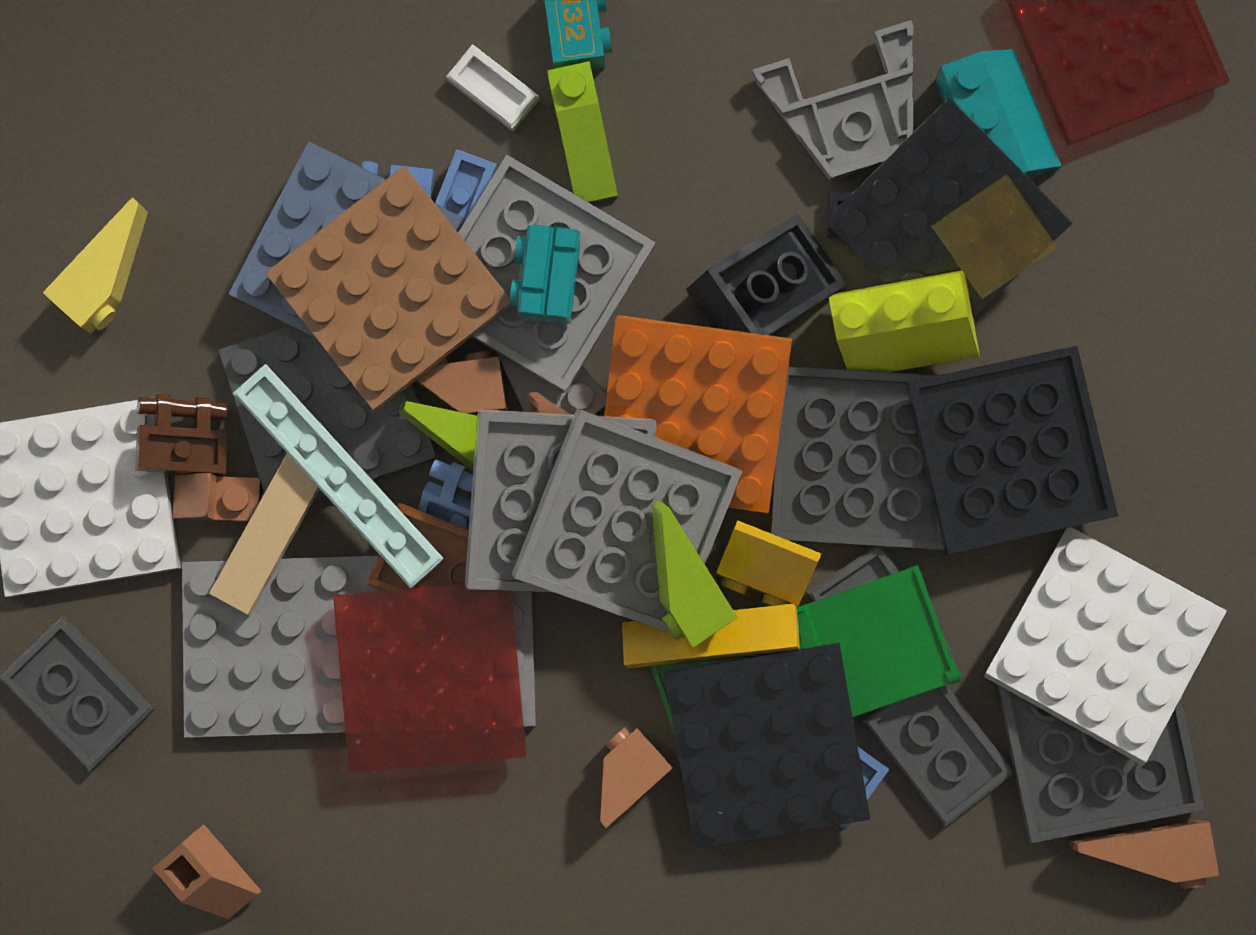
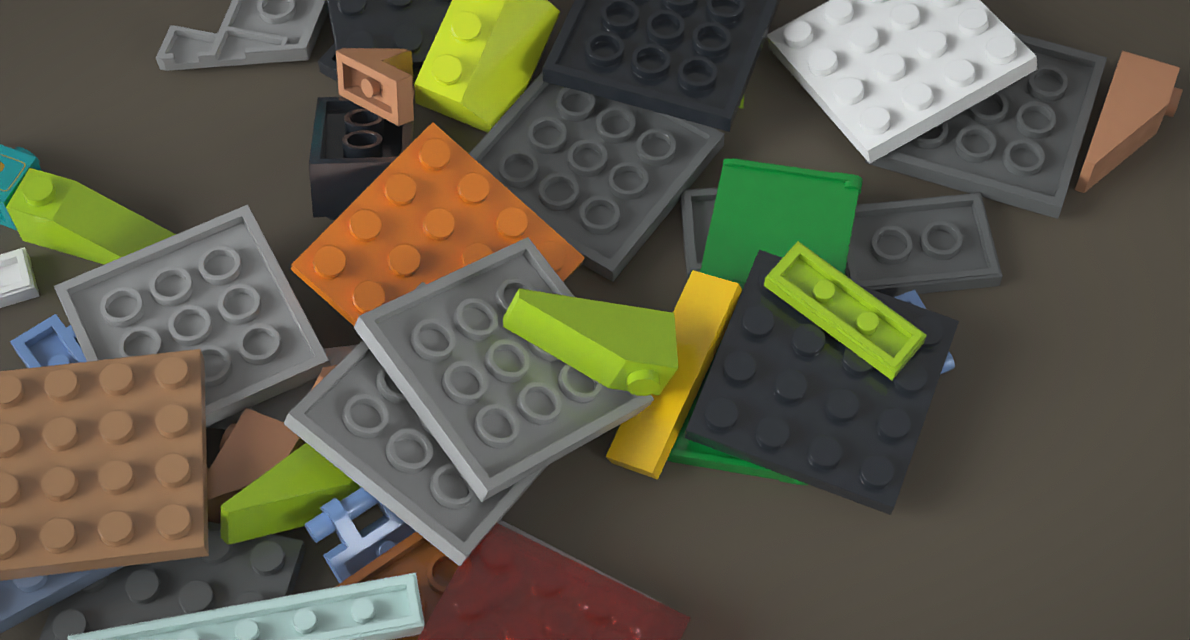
camera: 60 degrees left, 25 degrees down
(547, 274) = (200, 300): teal brick -> none
(628, 772) = (772, 533): nougat slope -> none
(766, 565) = (636, 264): yellow slope -> none
(819, 736) = (845, 310): none -> lime tile
(829, 257) = (378, 81): none -> nougat slope

